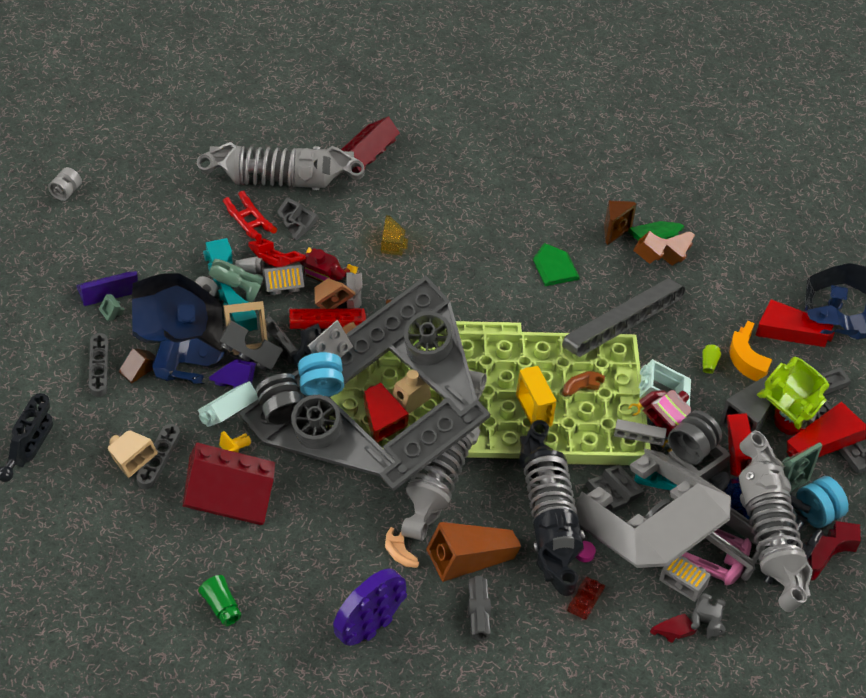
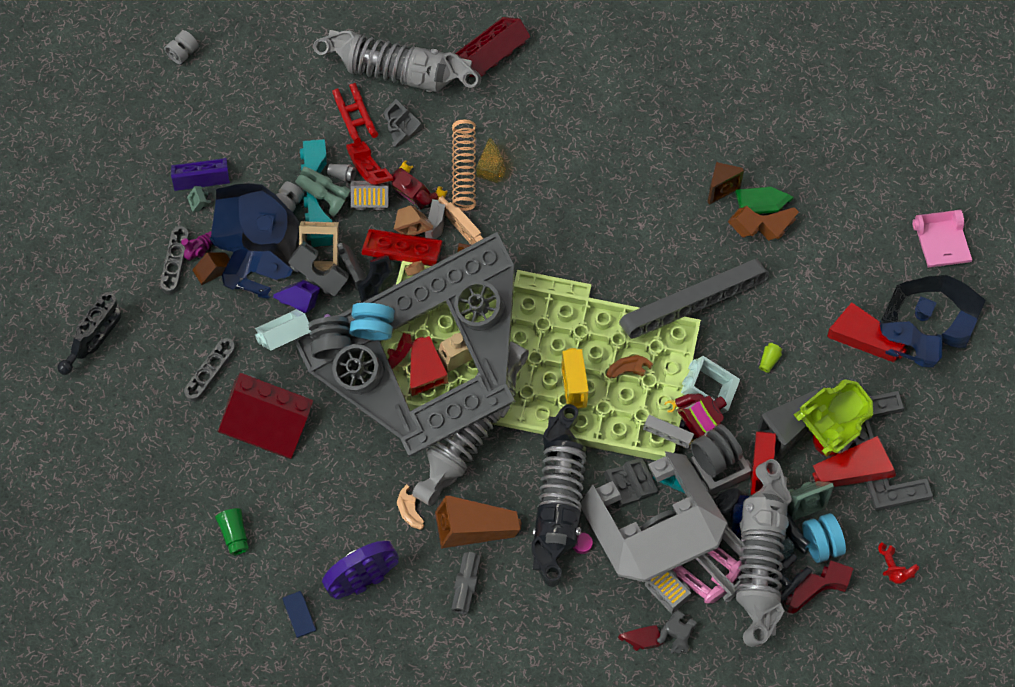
camera: 15 degrees right, 15 degrees up
(120, 347) = (196, 247): none -> magenta piece
(131, 451) = (183, 363): tan torso -> none
(234, 444) = (281, 371): yellow bracket -> none
(310, 670) = (298, 614): none -> dark blue slope
(332, 341) = (388, 290): light grey hinge -> none
(352, 220) = (465, 135): none -> light nougat piece
(355, 400) = (401, 351): none -> dark red slope
(378, 287) = (461, 222): none -> light nougat piece
(554, 265) = (647, 221): green tile -> none
(586, 598) = (569, 591): clear red slope -> none
(744, 358) = (806, 368): light orange arch -> none
(829, 239) = (942, 238): none -> bright pink door

